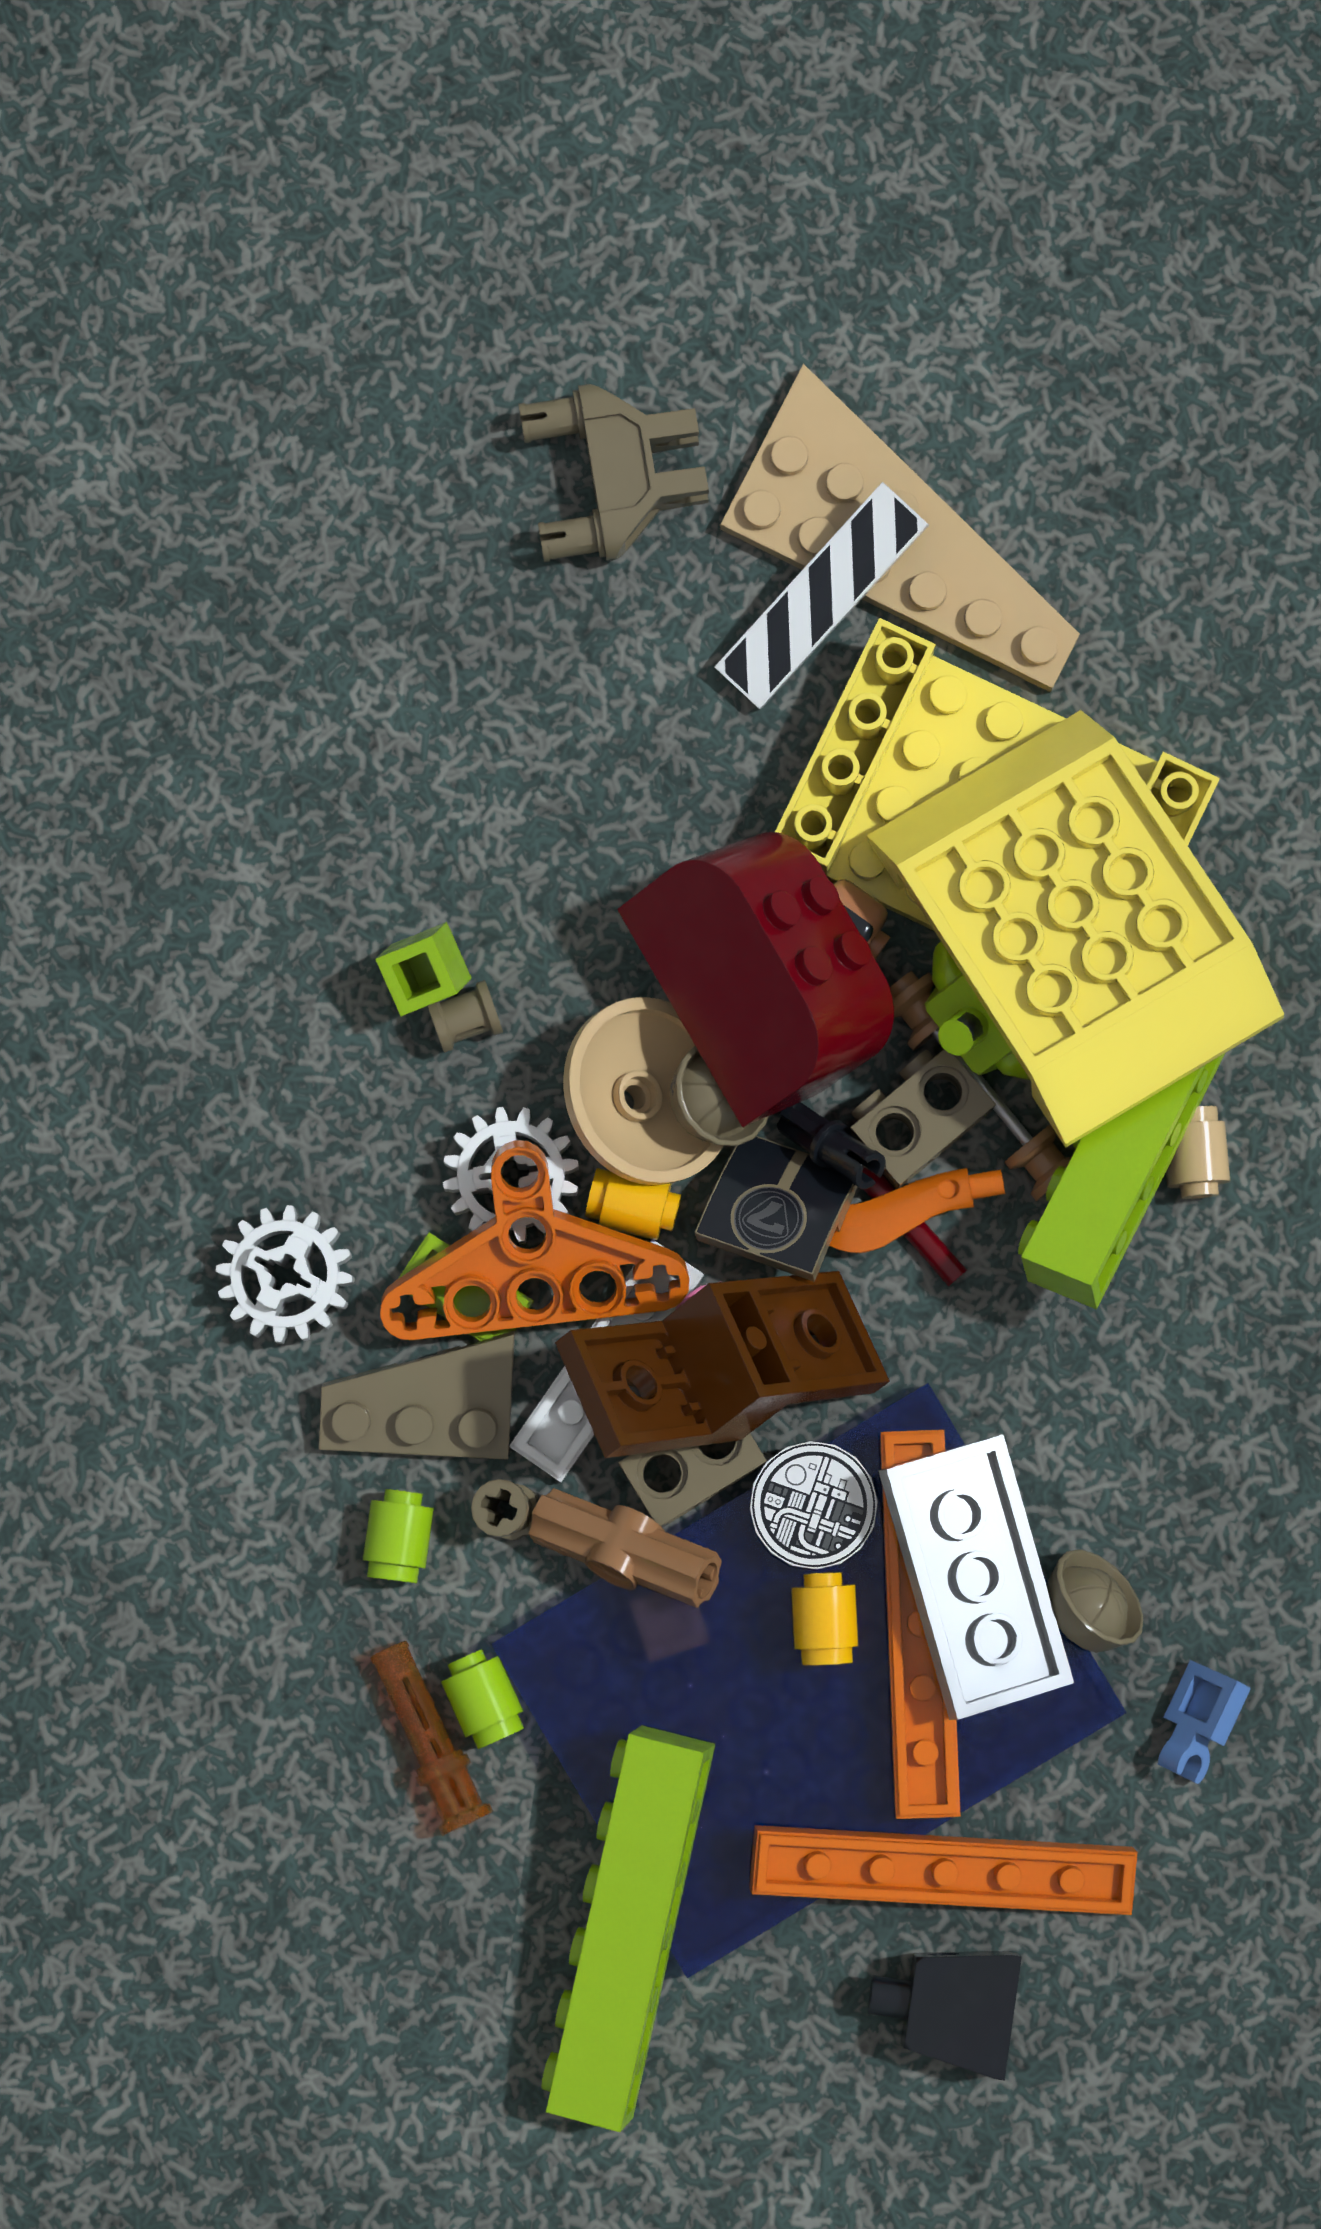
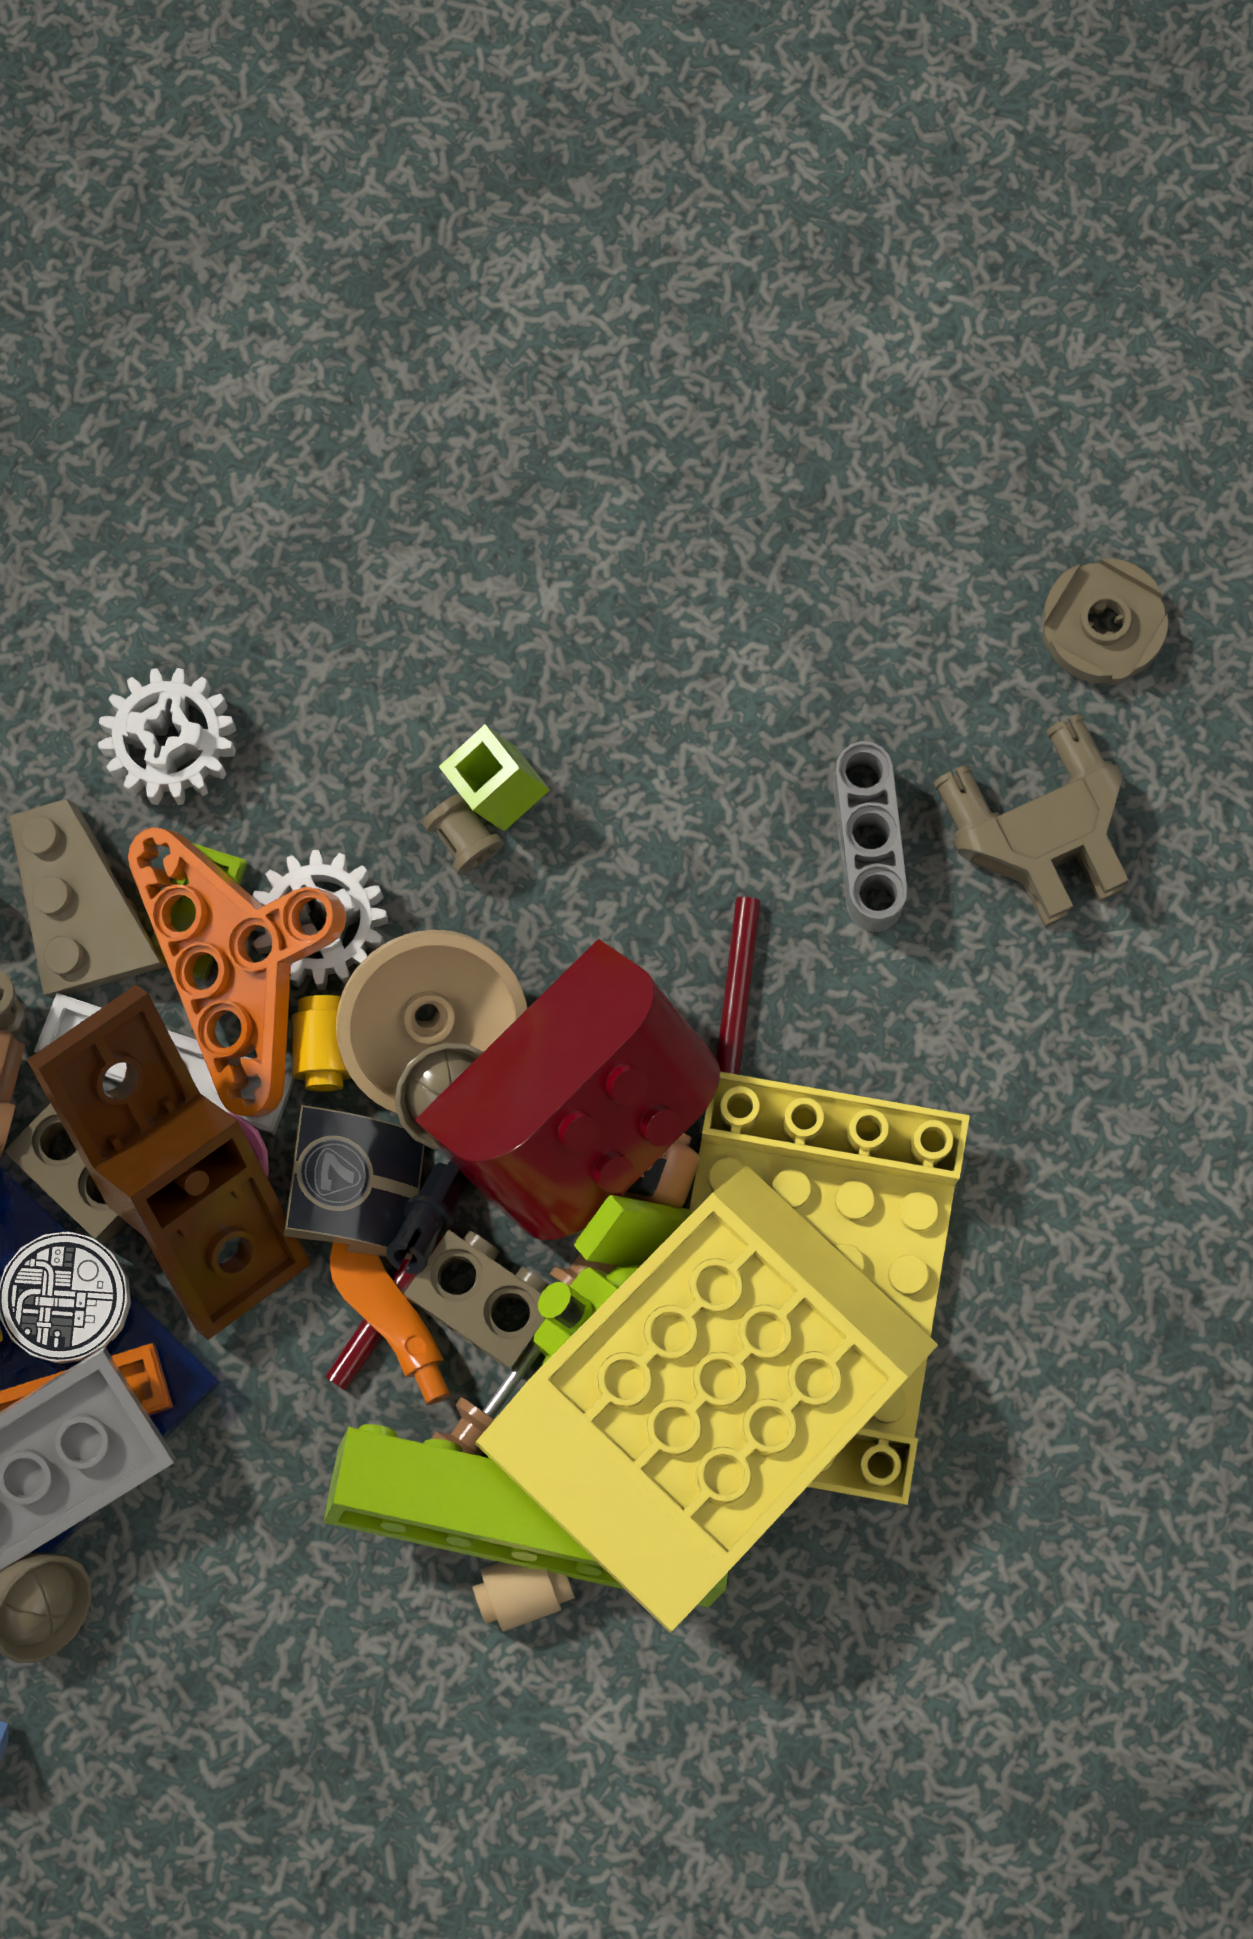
camera: 75 degrees right, 5 degrees down
(395, 356) = (1107, 656): none -> dark tan plate
(557, 614) = (876, 808): none -> light grey beam
(683, 800) = (738, 984): none -> dark red bar
(821, 595) = (980, 1057): tile -> none
(905, 952) = (628, 1230): none -> lime tile
(950, 582) = (1070, 1082): tan wing -> none

